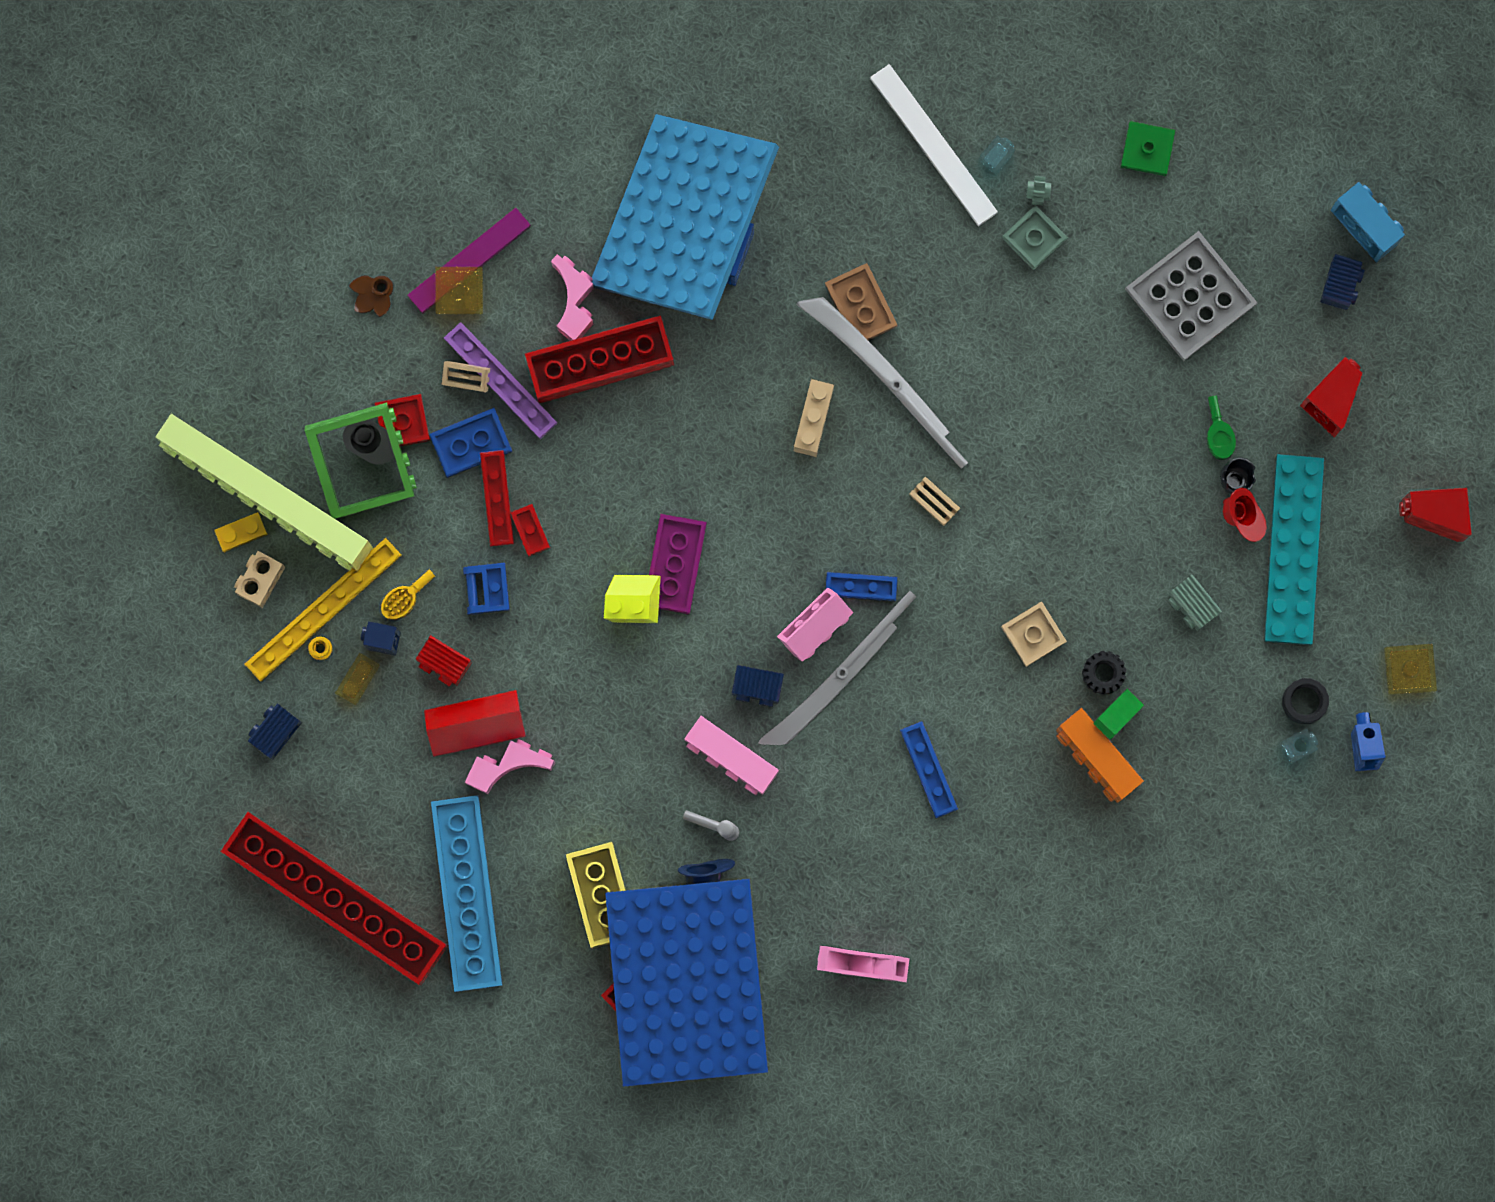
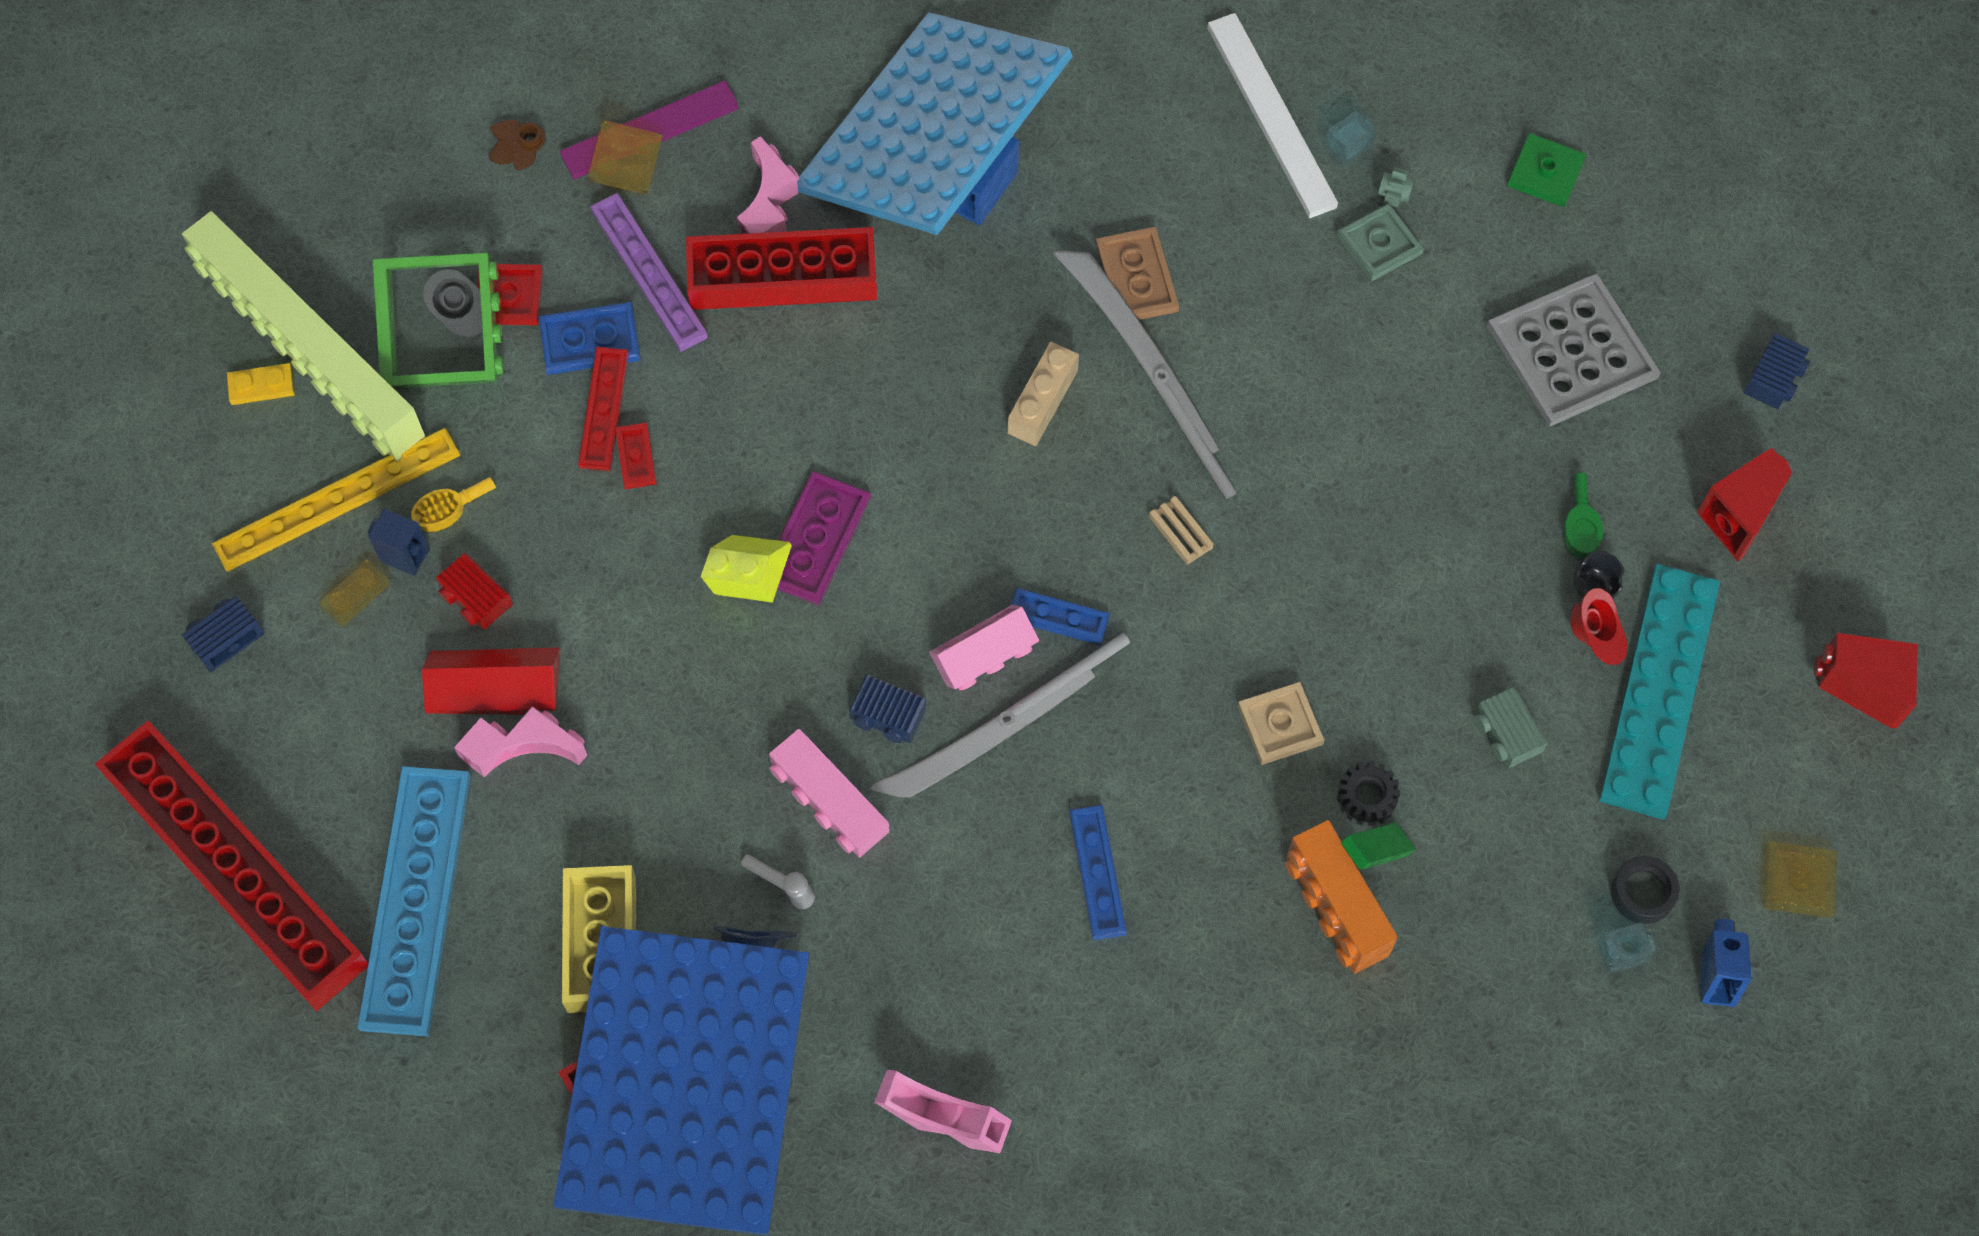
camera: 10 degrees right, 15 degrees down
(266, 582) = (271, 446): tan brick -> none
(313, 645) = (311, 538): yellow plate -> none
(484, 378) = (625, 262): tan tile -> none
(494, 588) = (568, 515): blue plate -> none
(1368, 221) = (1824, 301): dark azure brick -> none

